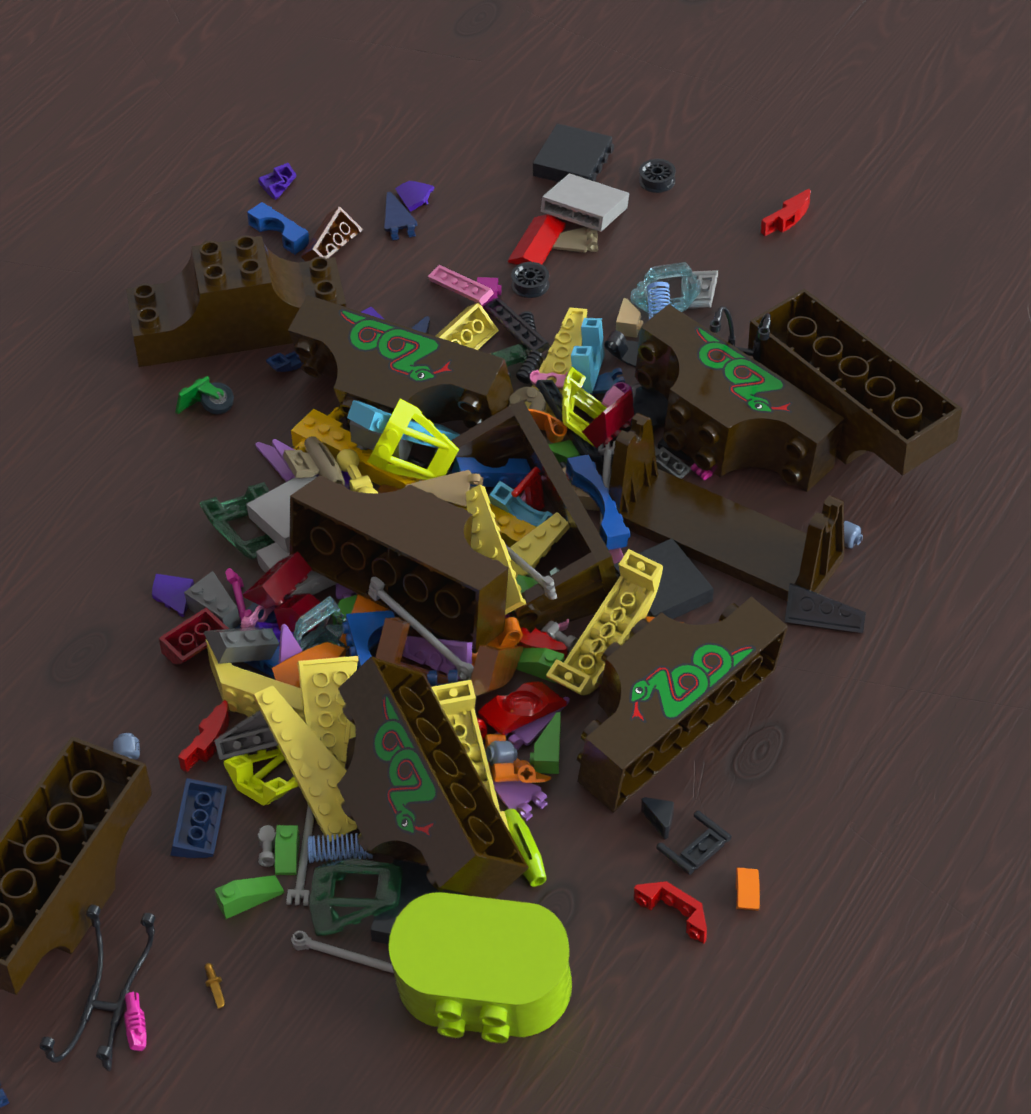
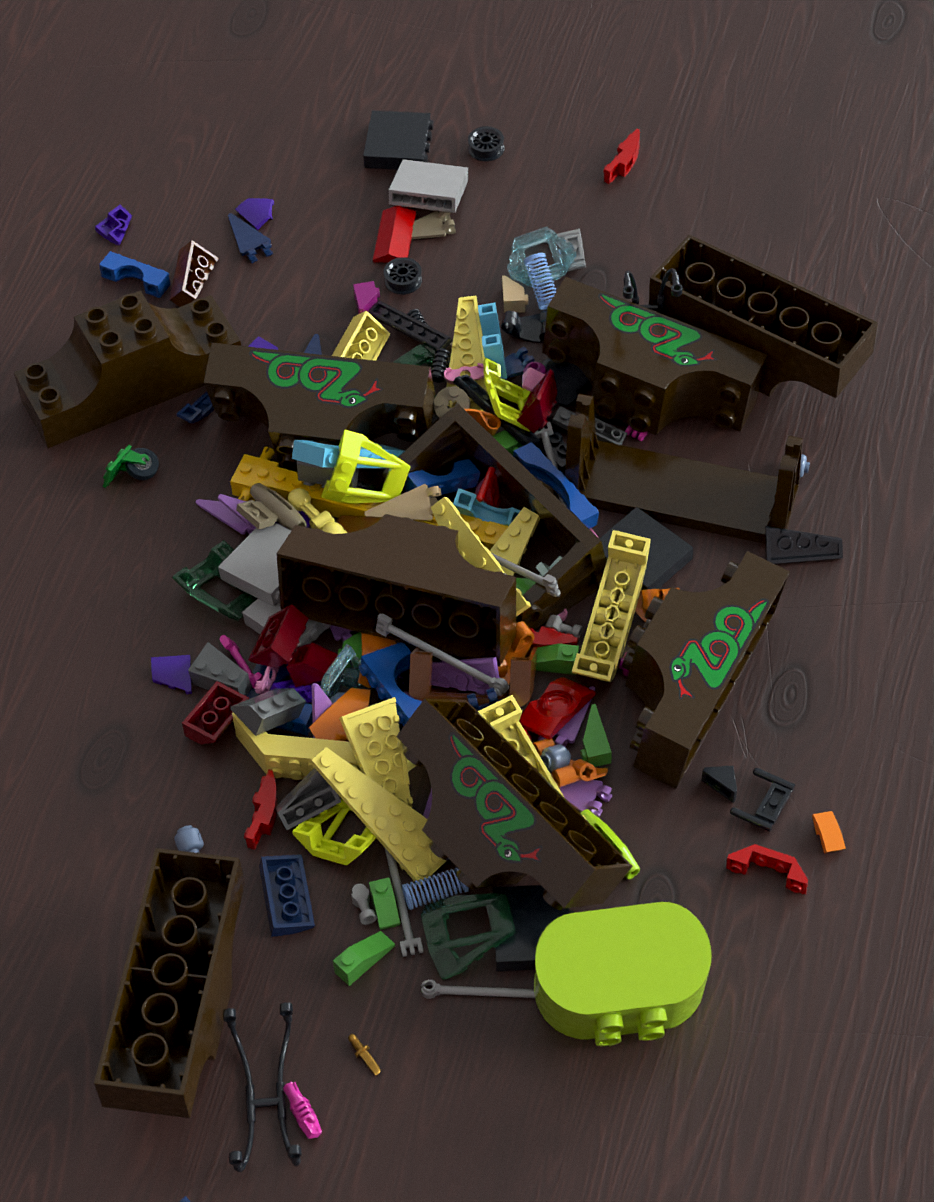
camera: 15 degrees left, 5 degrees up
(460, 284) = (340, 295): bright pink plate -> none

